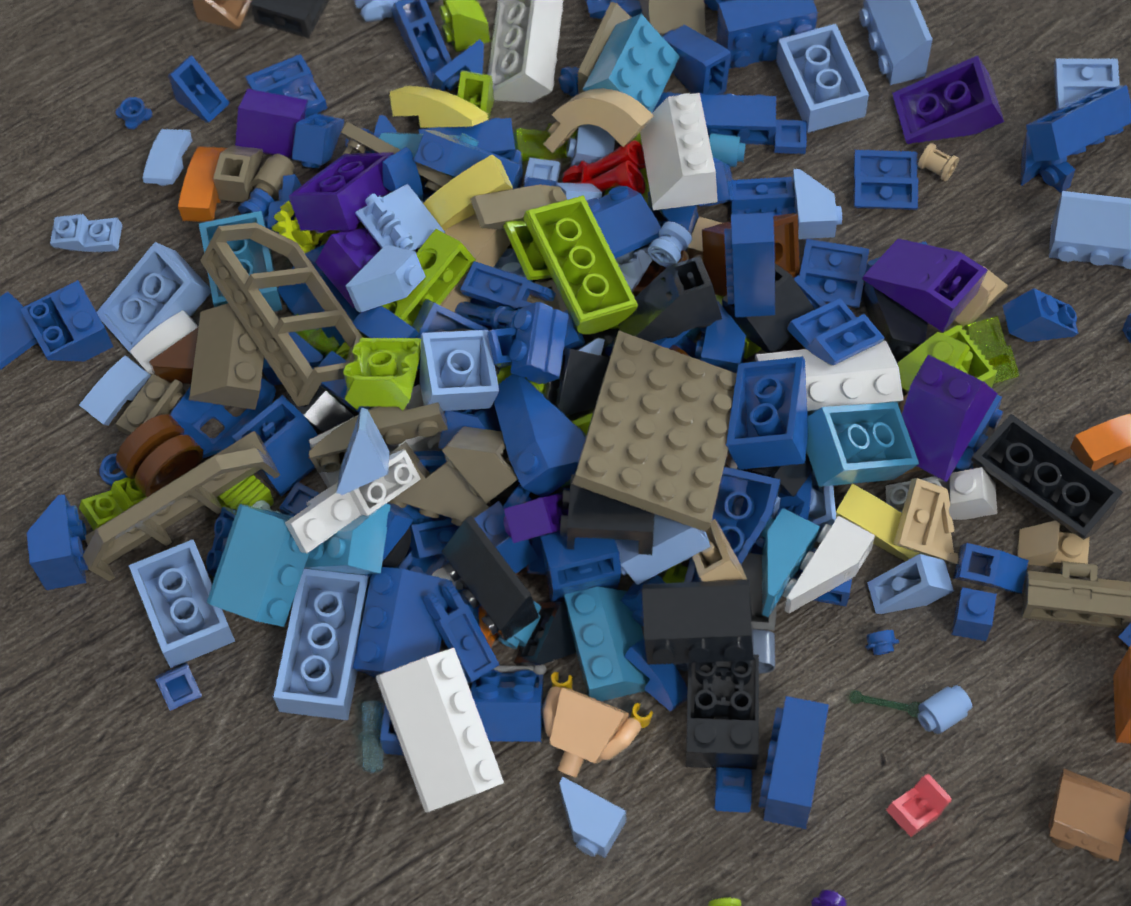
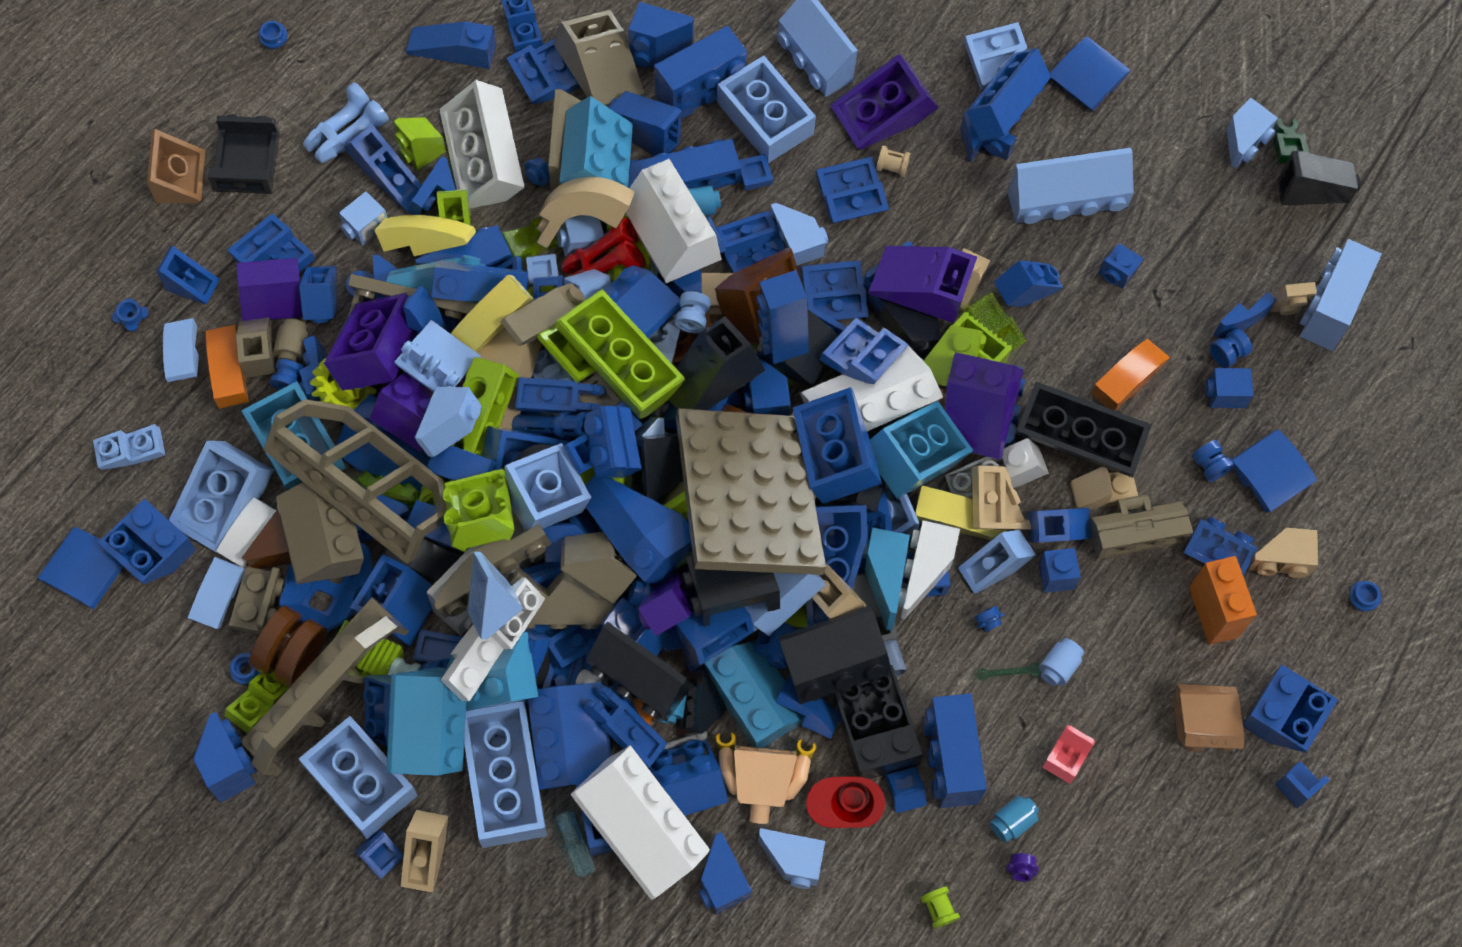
camera: 25 degrees left, 5 degrees up
(220, 694) = (423, 850): none -> tan slope
(383, 78) = (362, 218): none -> light blue brick
(507, 817) = (722, 878): none -> blue slope
(661, 779) = (845, 802): none -> red piece
(838, 854) = (1014, 818): none -> dark azure brick

